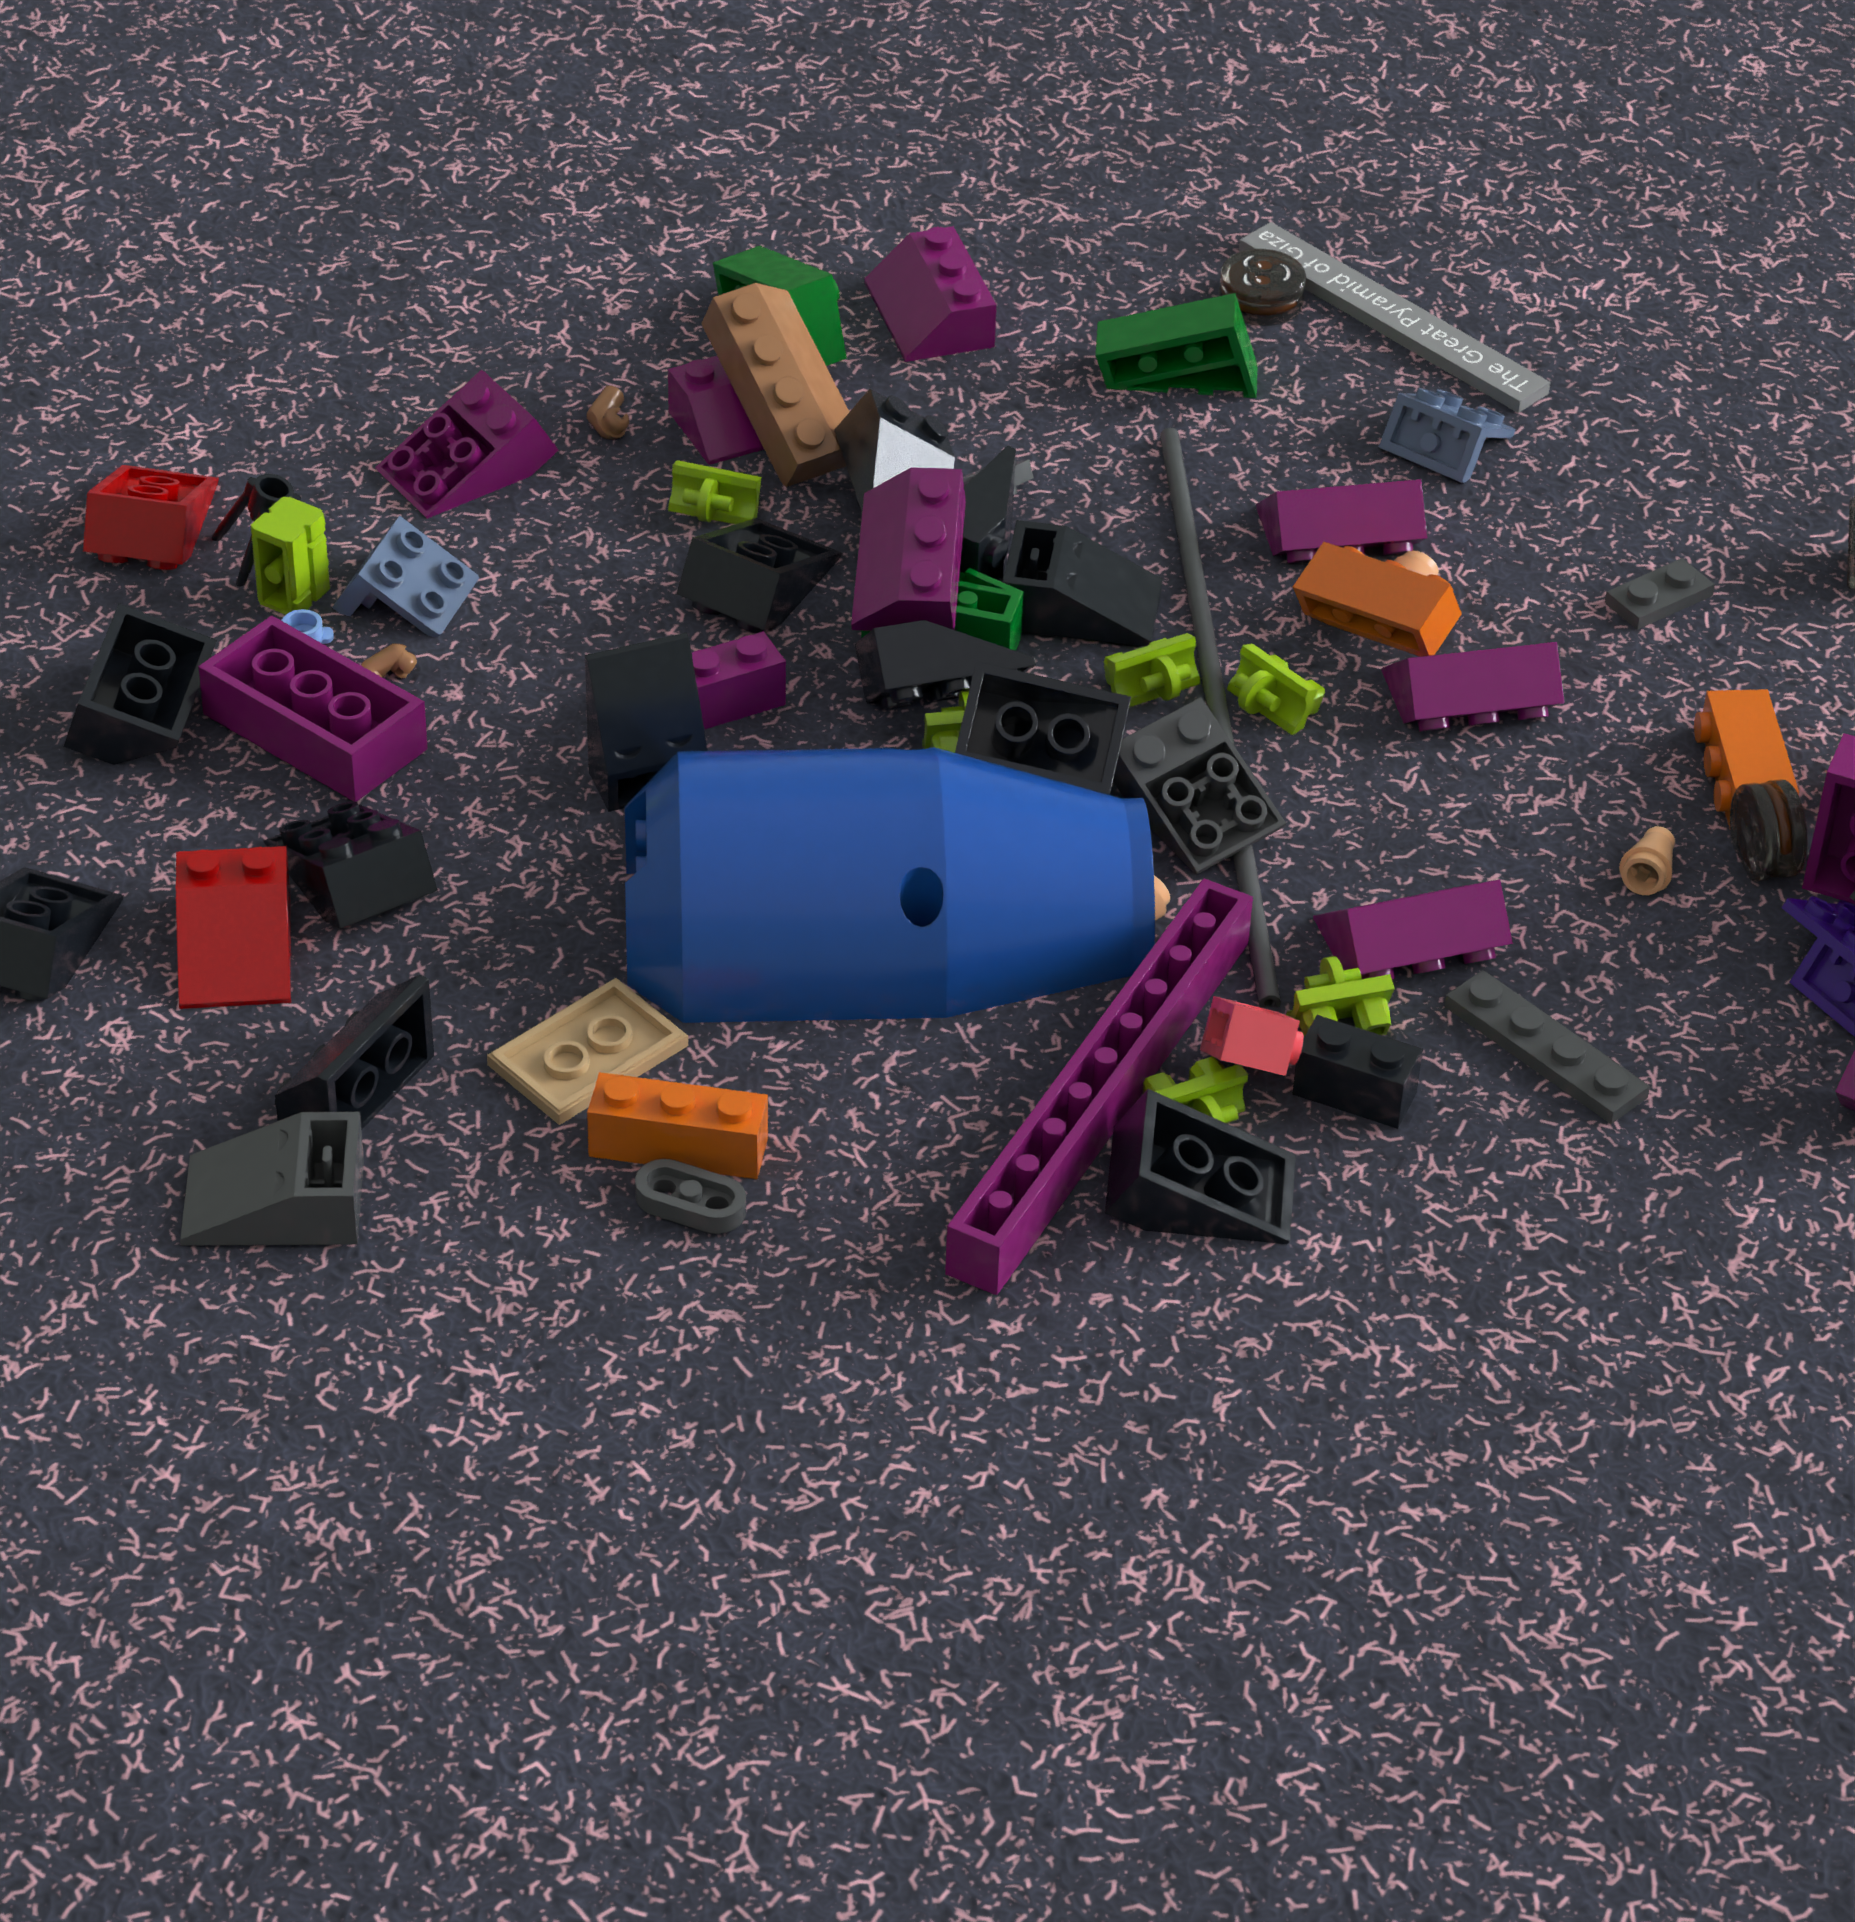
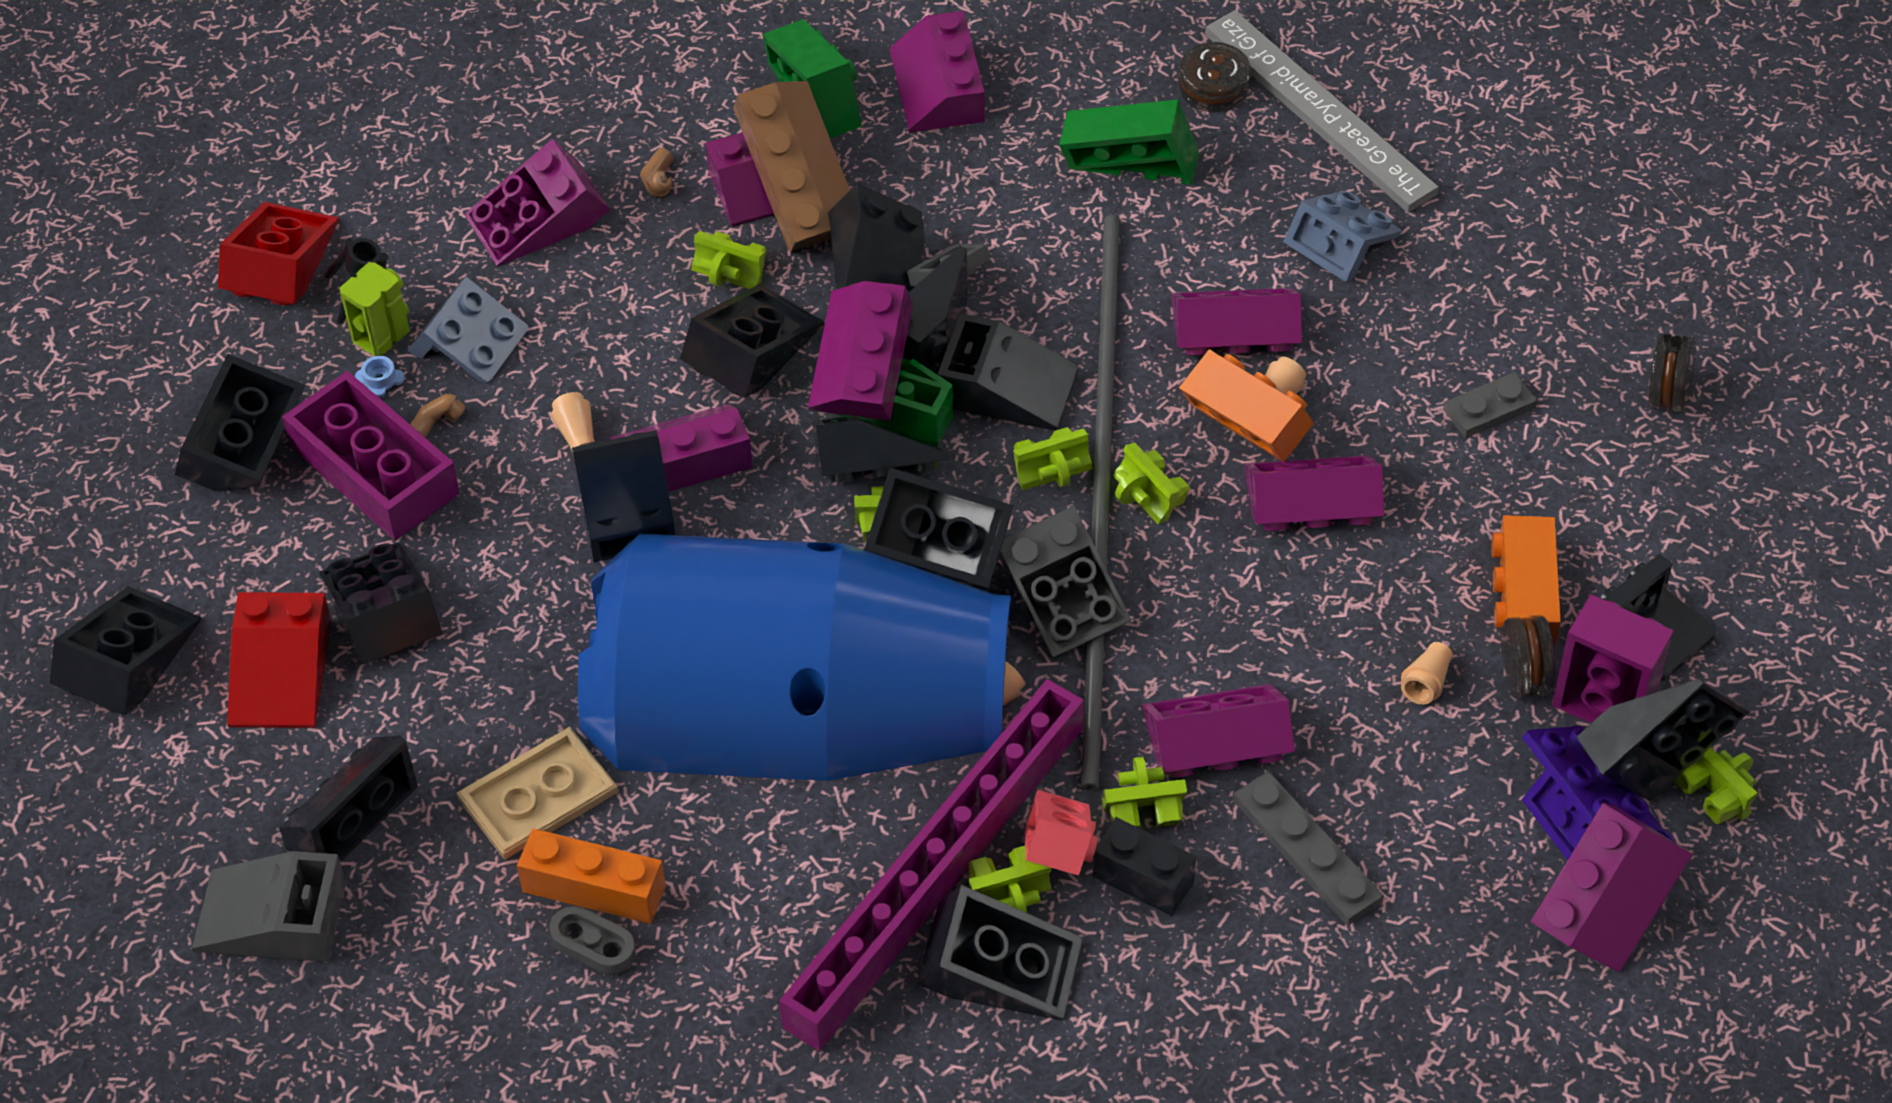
camera: 10 degrees right, 10 degrees up
(557, 665) = (573, 418): none -> light nougat cone

